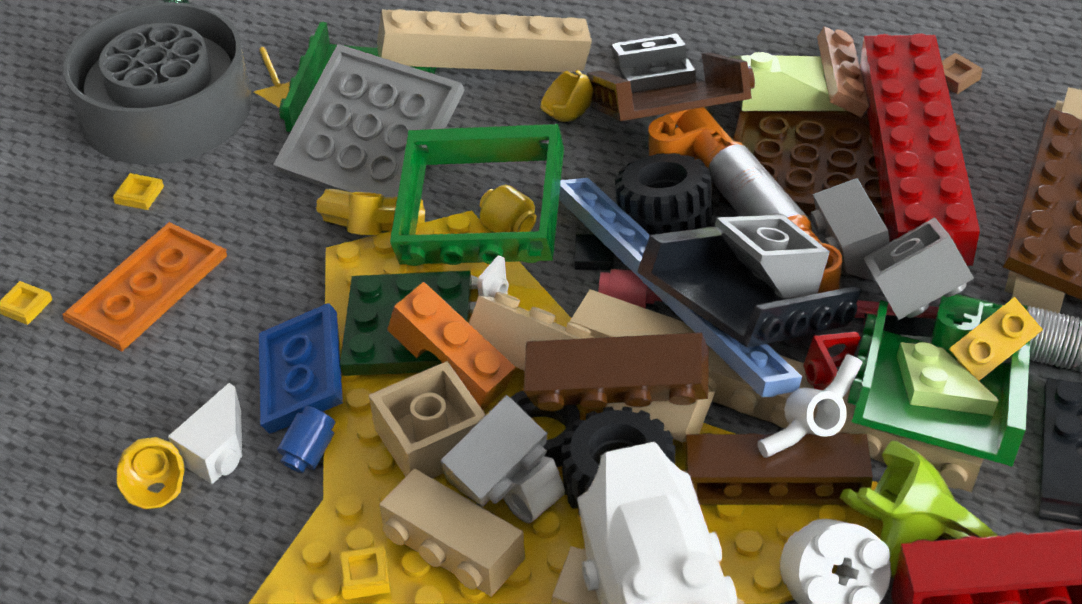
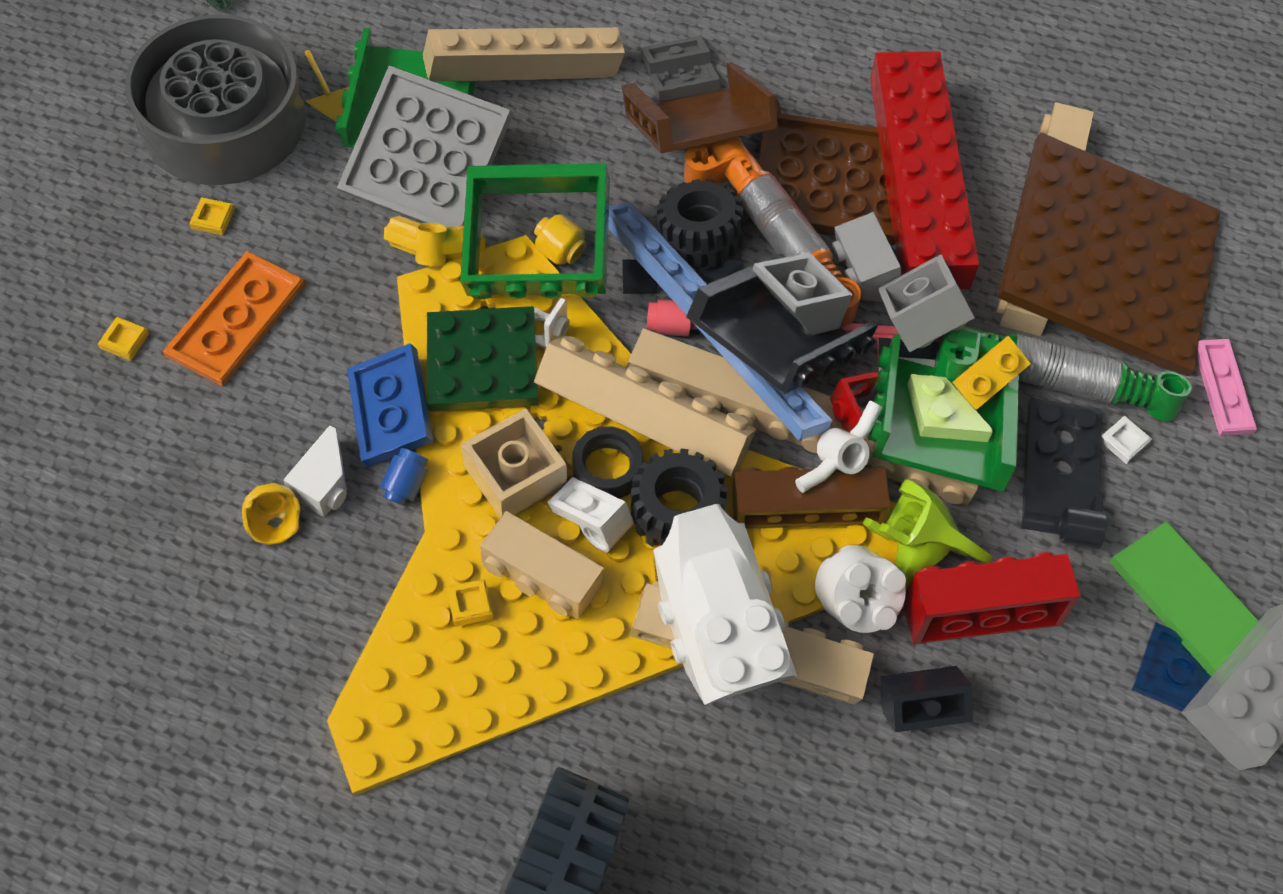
camera: 10 degrees left, 15 degrees up
(428, 323) = (509, 373): orange arch -> none
(494, 453) = (578, 501): light grey slope -> none
(568, 96) = (607, 106): yellow hair -> none
(617, 371) = (675, 419): reddish brown brick -> none
(787, 84) = (810, 92): yellowish green slope -> none
(842, 71) = (854, 82): nougat plate -> none
(960, 73) = (959, 80): medium nougat plate -> none

